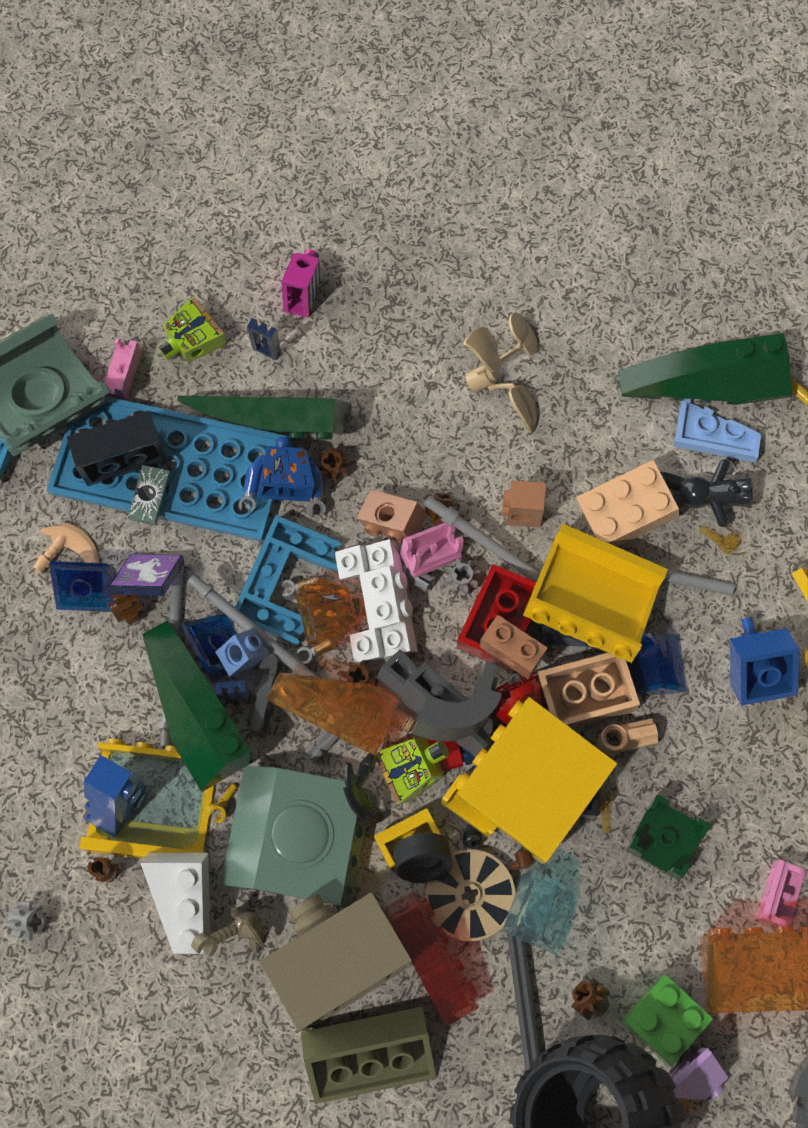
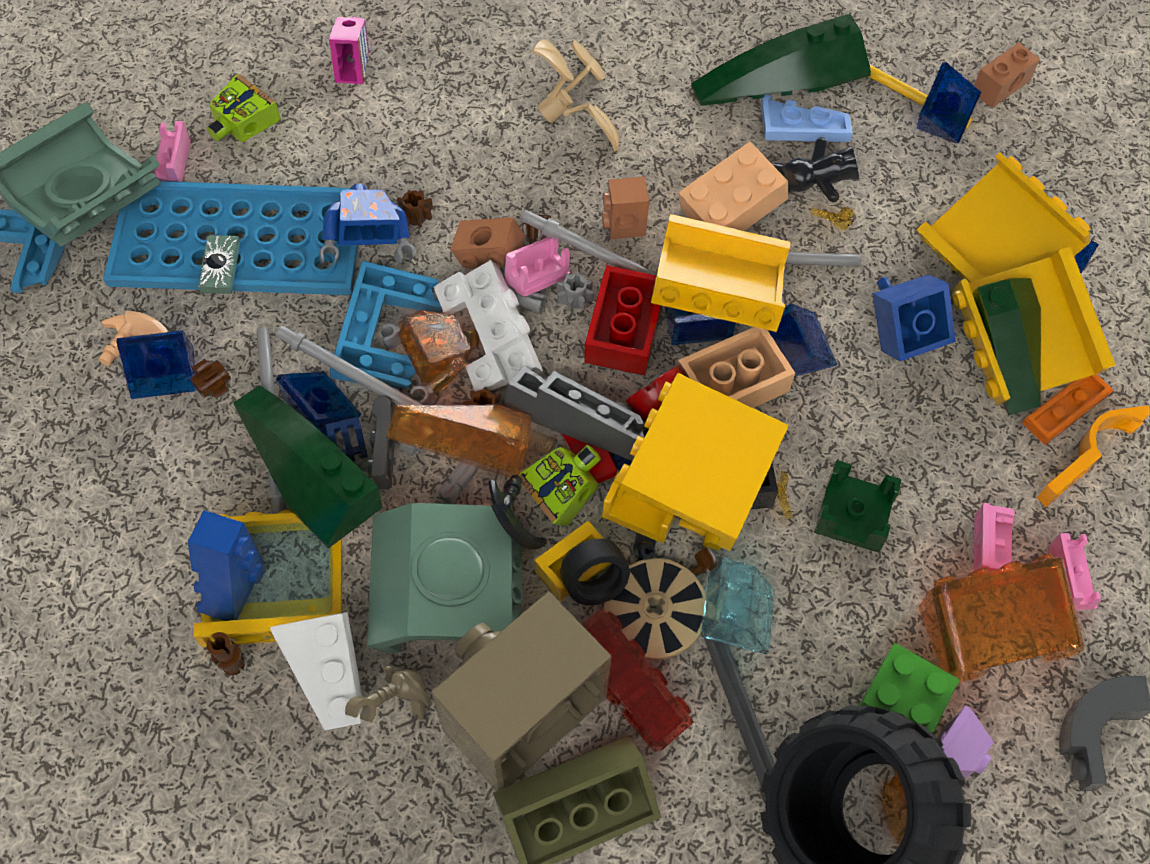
camera: 15 degrees left, 10 degrees down
(26, 920) = (140, 732): light grey gear -> none
(116, 447) = (176, 217): black brick -> none
(146, 574) = (228, 340): tile -> none
(221, 804) = (353, 564): yellow hand -> none
(242, 652) = (349, 396): medium blue brick -> none
(269, 339) = (325, 100): dark blue tile -> none
(277, 414) = (342, 164): dark green wedge -> none
(455, 721) = (602, 413): dark grey arch -> none
(513, 647) = (647, 334): nougat brick -> none
(590, 999) = (817, 690): reddish brown gear -> none
(629, 736) = (795, 411): light nougat piece -> none

